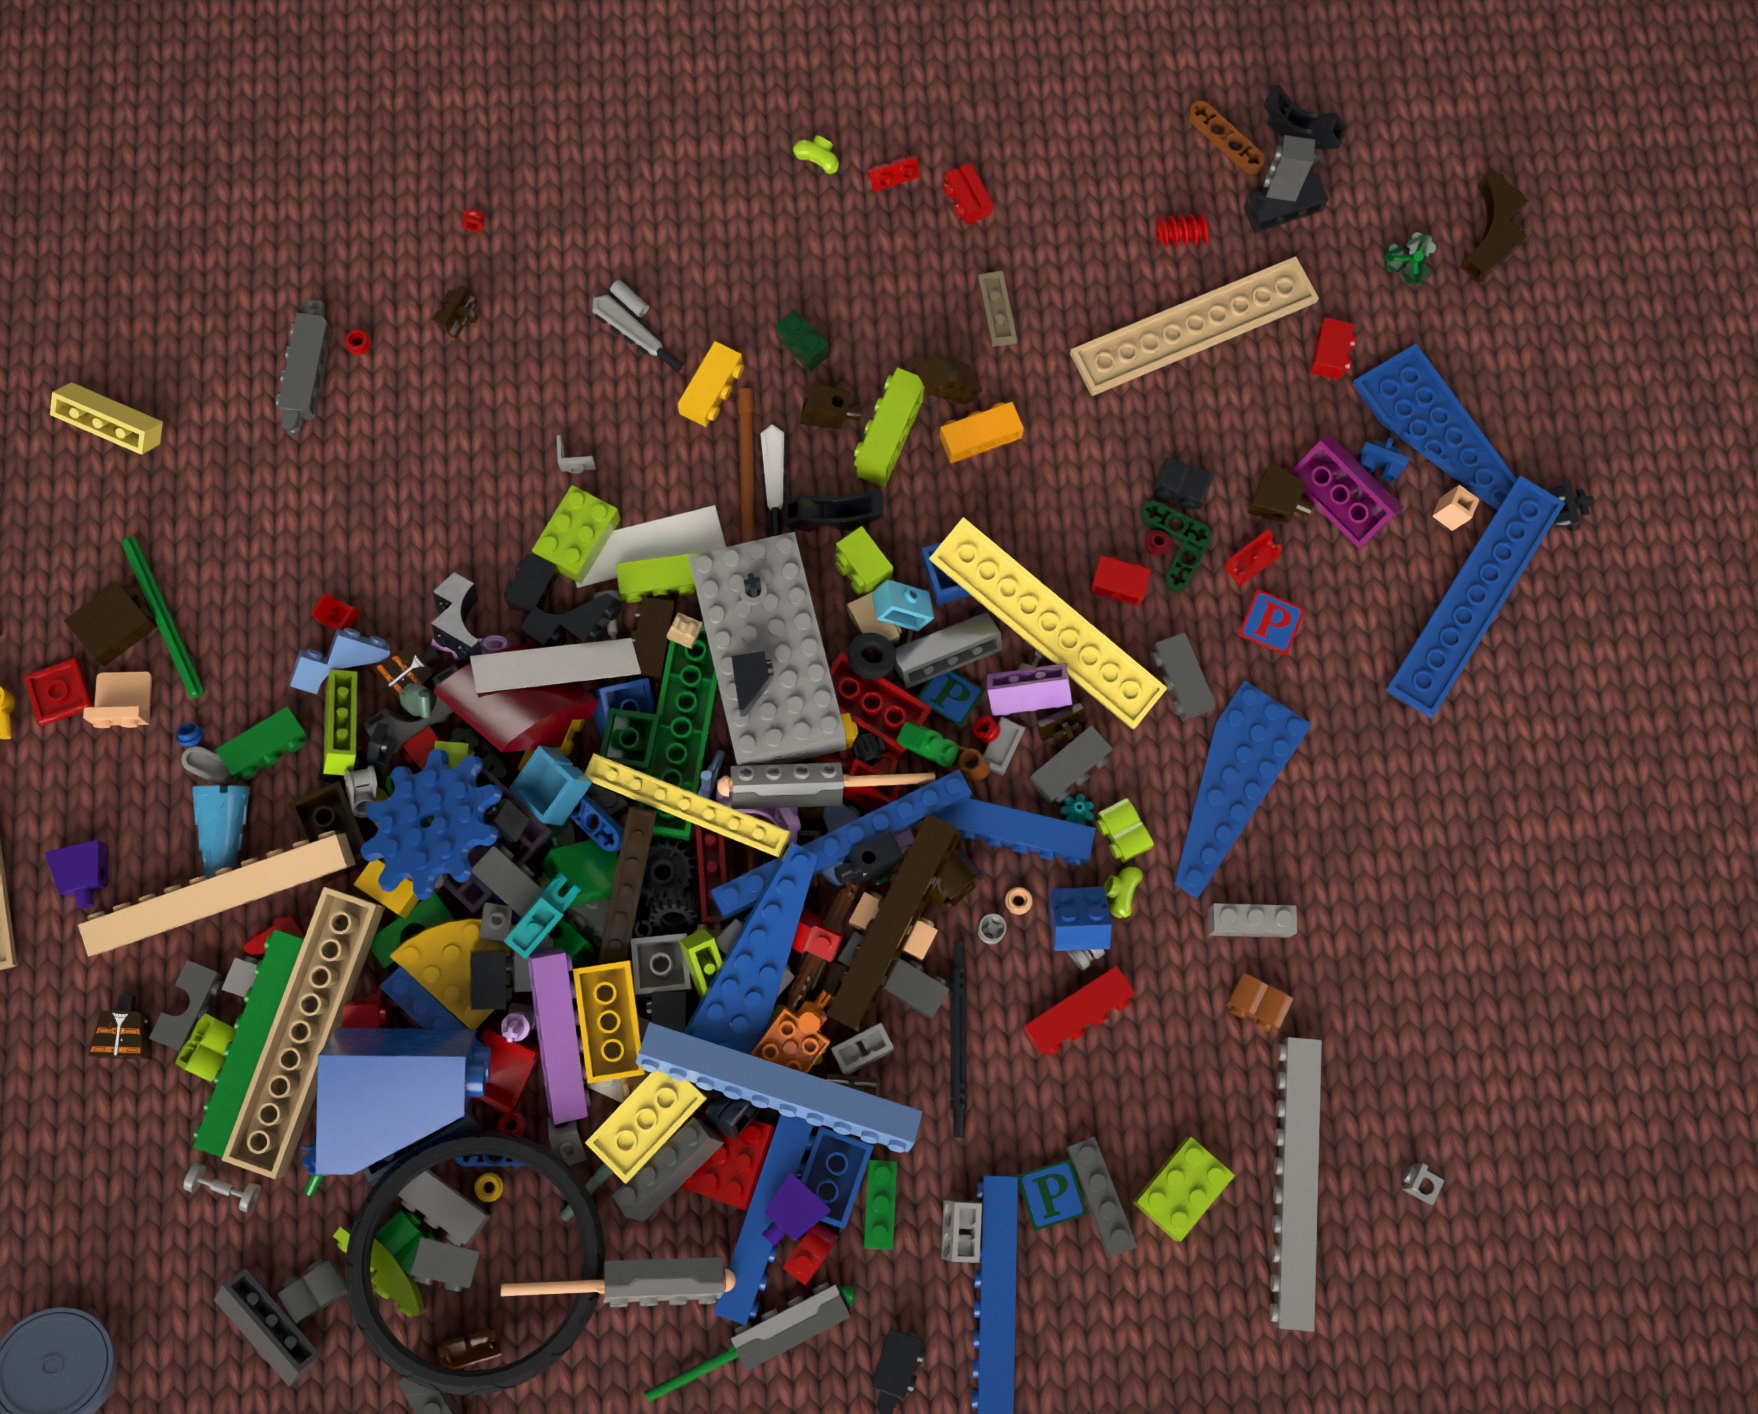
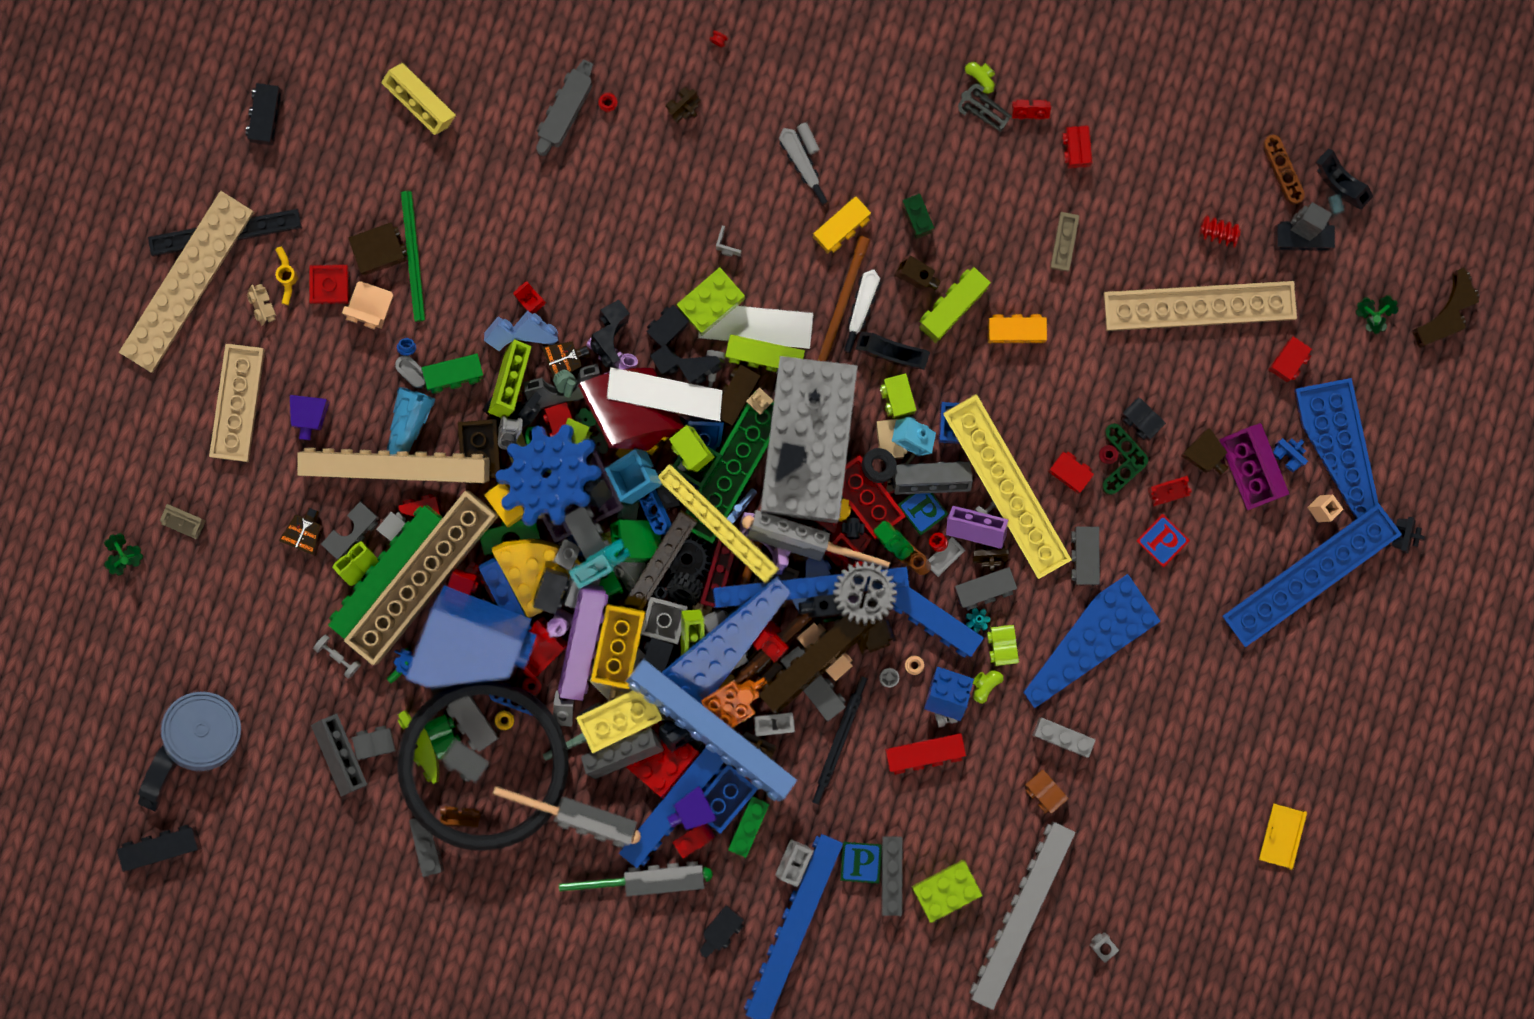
camera: 20 degrees right, 10 degrees up
(615, 720) = (691, 448): none -> lime brick
(807, 182) = (967, 96): none -> pearl dark grey piece
(943, 817) = (881, 597): none -> light grey gear
(948, 379) = (1007, 287): dark brown brick -> none
(1591, 940) = (1285, 831): none -> yellow door

